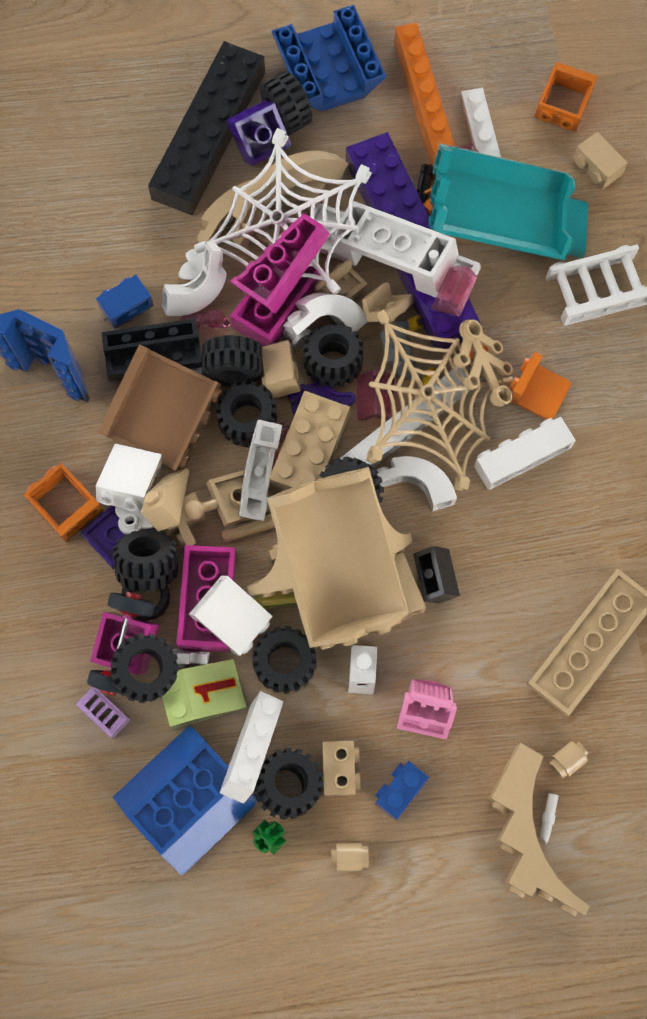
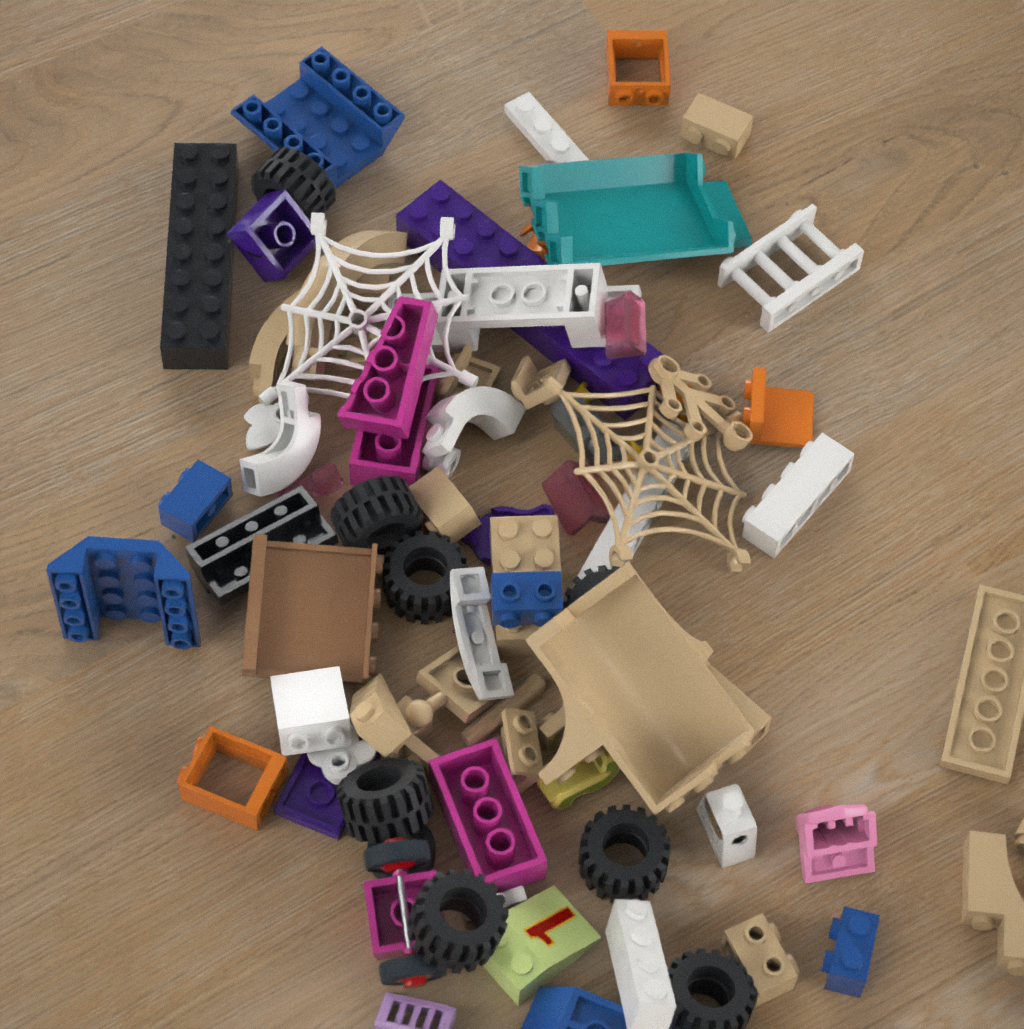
camera: 25 degrees left, 15 degrees down
(231, 615) = (534, 817): white panel -> none
(251, 558) = (521, 747): none -> tan bracket
(296, 460) = (525, 597): none -> blue brick
(333, 339) = (502, 446): black tyre -> none
(422, 89) = (460, 123): orange brick -> none
(424, 181) = (510, 220): black axle -> none
(424, 475) = (692, 568): white arch -> none
(436, 574) = (764, 676): black brick -> none

